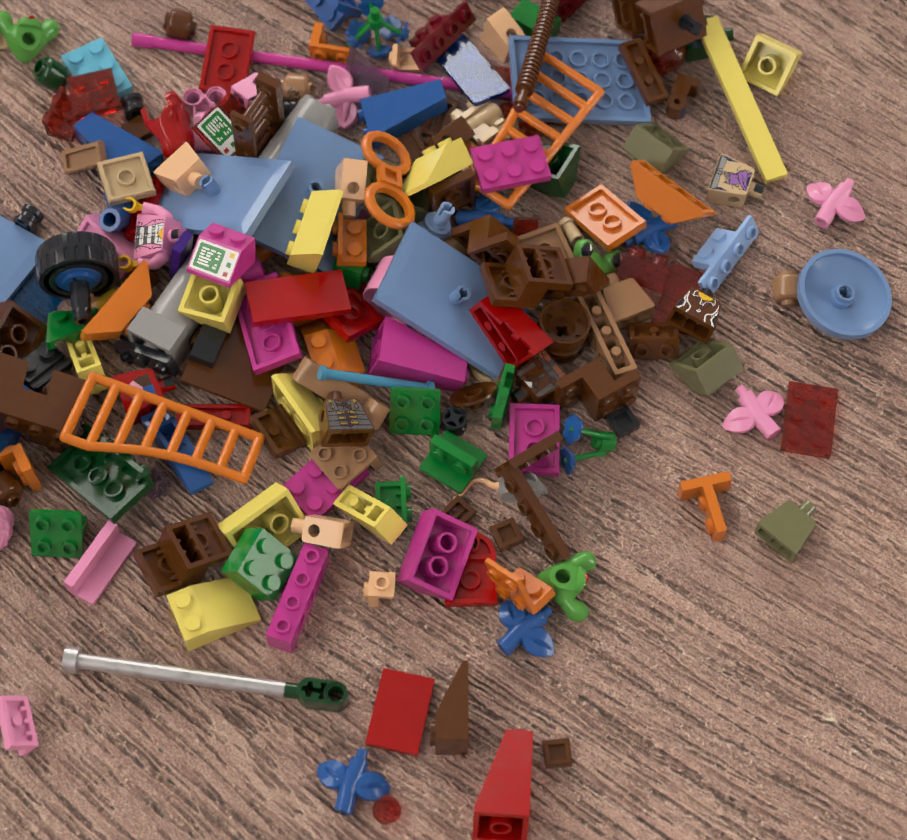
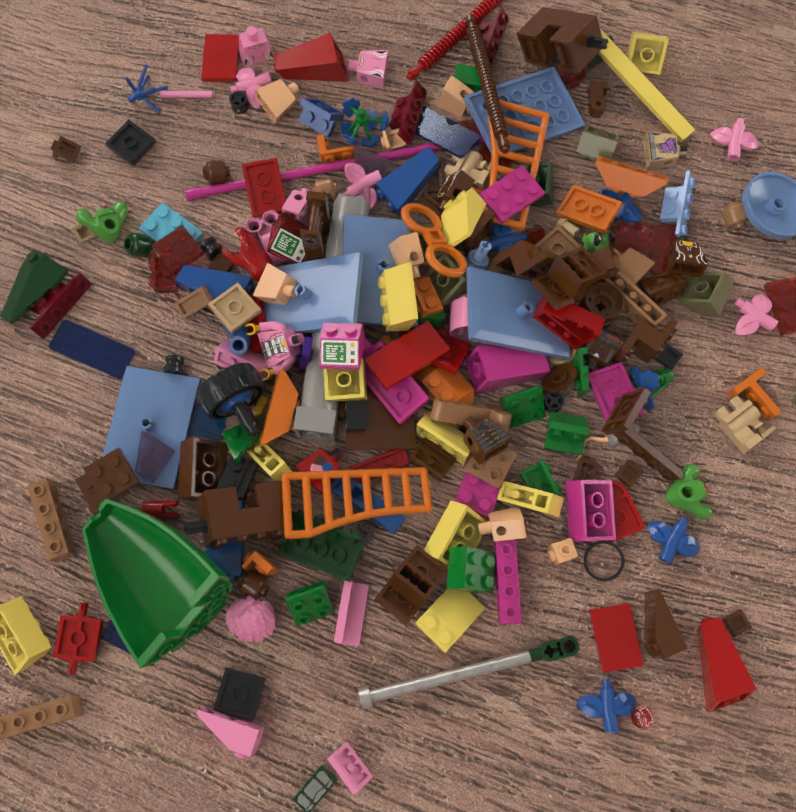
camera: 20 degrees left, 10 degrees up
(146, 357) = (311, 441): black hinge -> none
(324, 373) = (457, 407): dark azure bar -> none
(411, 604) = (603, 542): none -> black piece
(520, 587) = (662, 511): orange bracket -> none
(643, 72) = (566, 89): reddish brown plate -> none
(671, 524) = (737, 424): none -> tan hips

